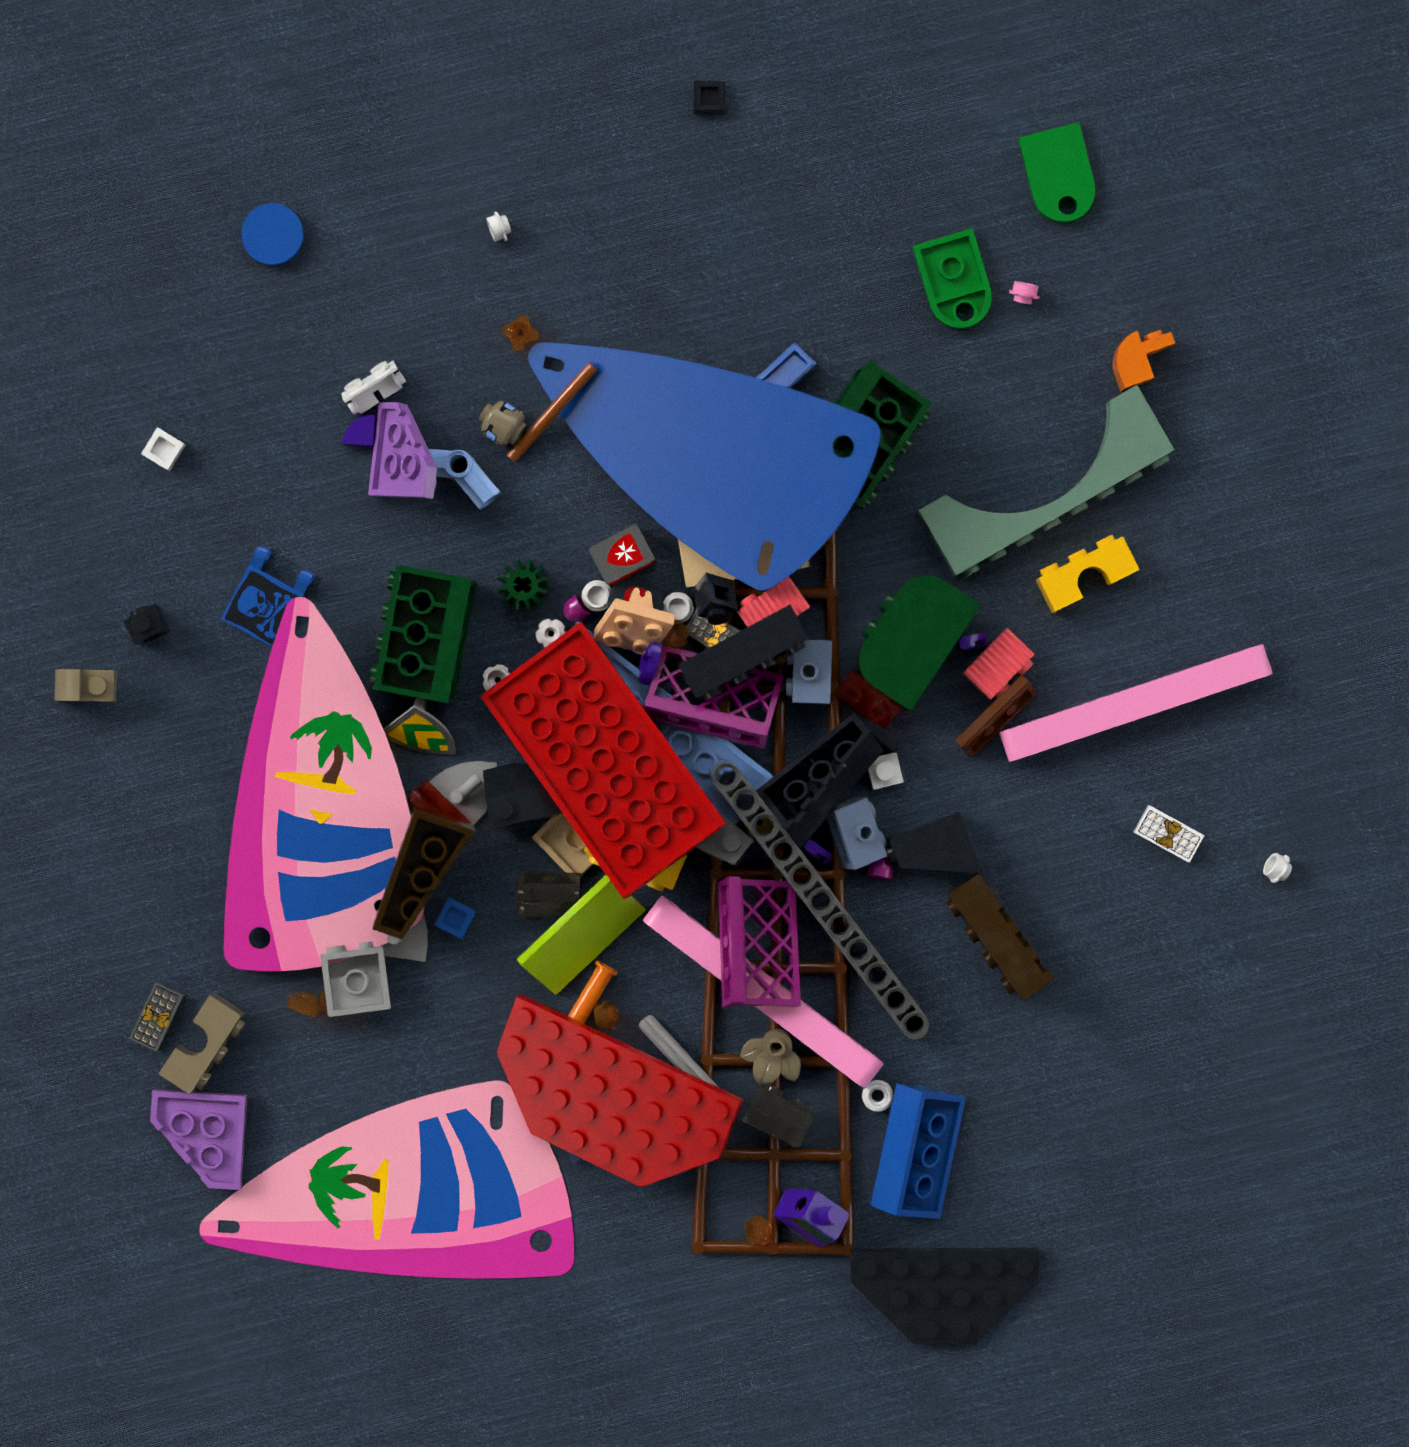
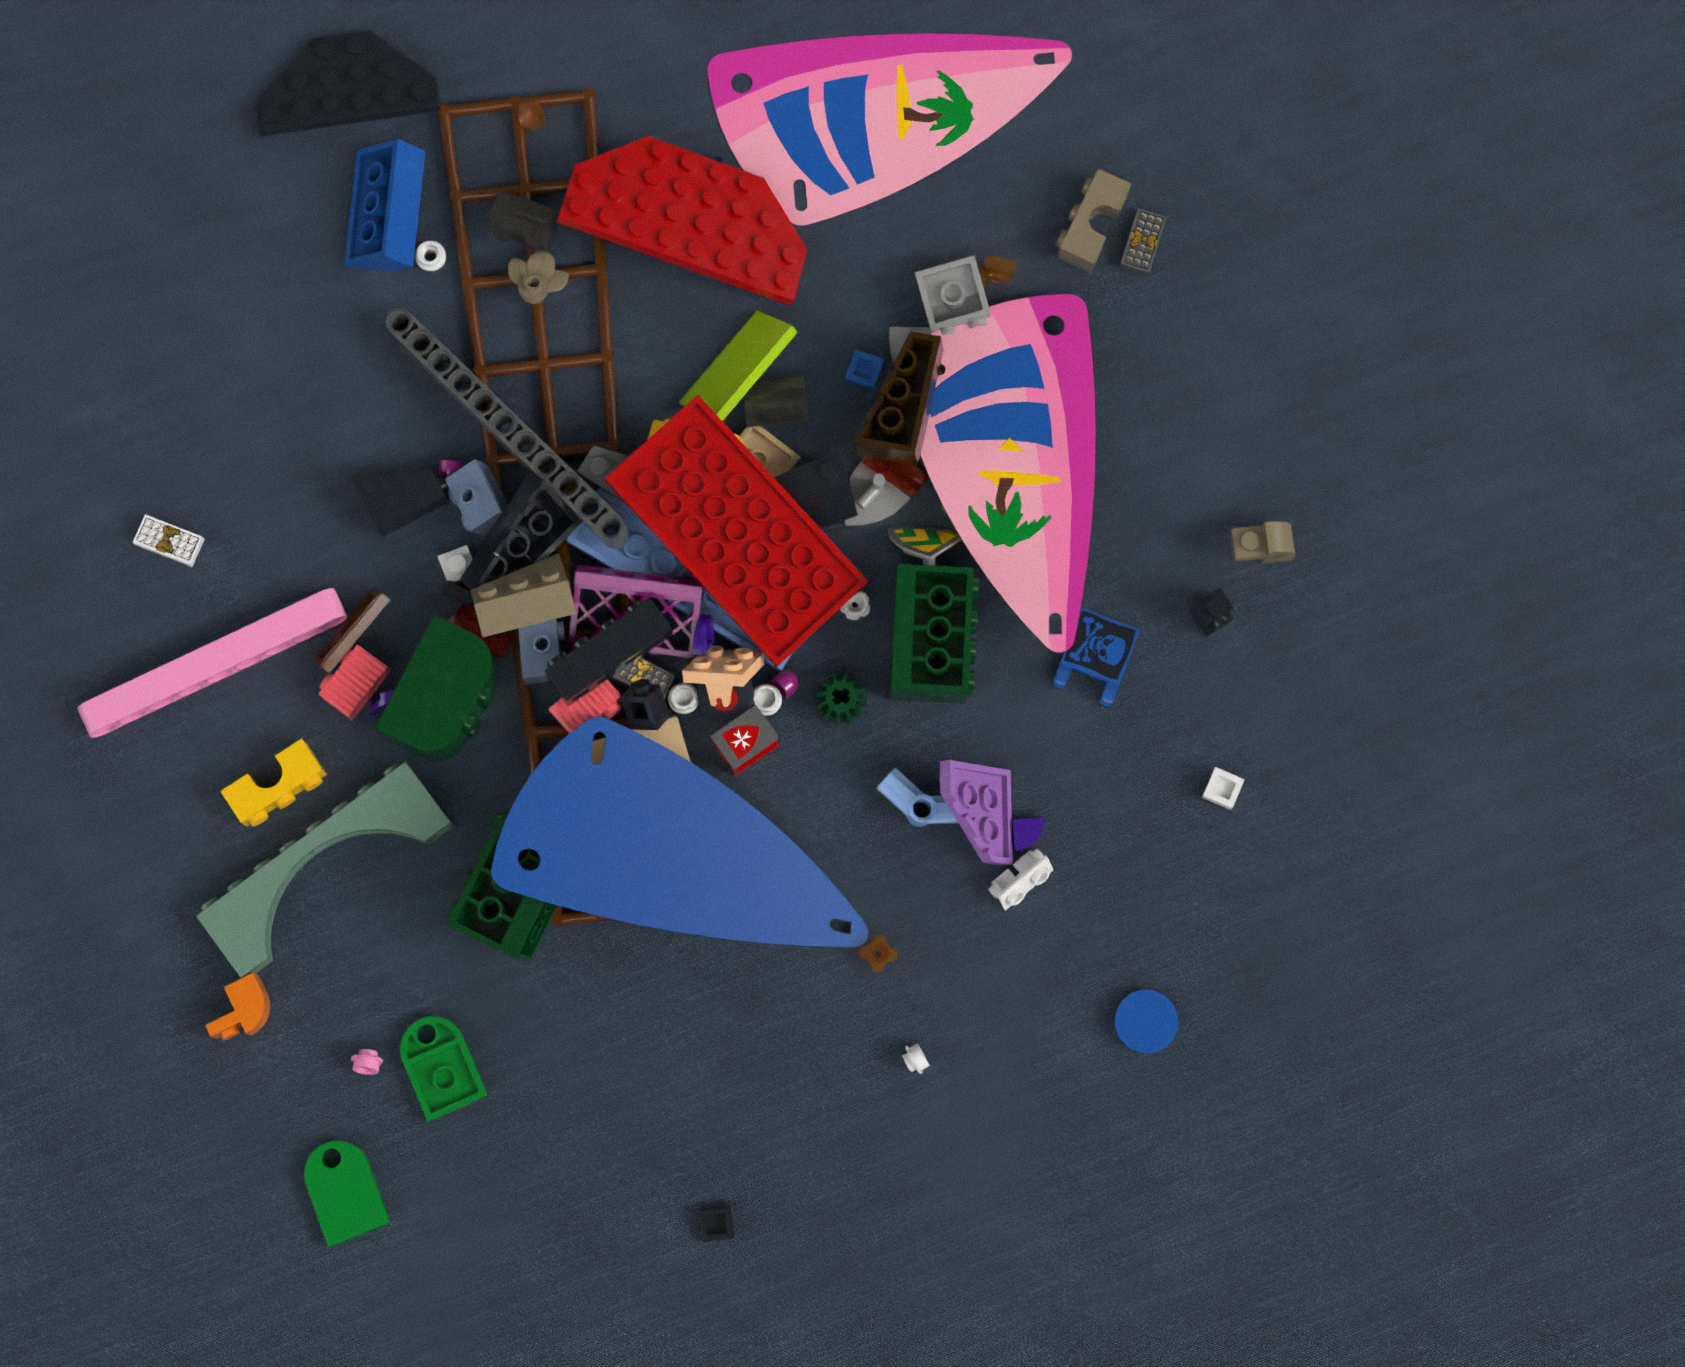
camera: 170 degrees right, 10 degrees down
(205, 1132) = (1079, 139): medium lavender plate -> none
(502, 423) = (884, 858): dark tan head -> none
(546, 626) = (807, 664): white plate -> none
(552, 412) = (834, 875): dark orange bar -> none
(592, 992) = (721, 316): orange pin -> none
(606, 1015) = (704, 296): clear orange plate -> none
(671, 1048) = (628, 266): light grey axle -> none
(677, 635) = (677, 665): clear orange plate -> none
(733, 943) = (585, 370): magenta fence -> none
(789, 368) = (604, 946): blue tile -> none
(800, 1021) = (553, 335): bright pink beam -> none
(817, 851) = (513, 476): dark purple tile -> none
(817, 1217) = (471, 127): dark purple torso -> none
(819, 718) = (524, 597): none -> dark tan wedge
(999, 937) = (324, 415): dark brown wedge -> none
(1277, 867) = (57, 520): white plate -> none

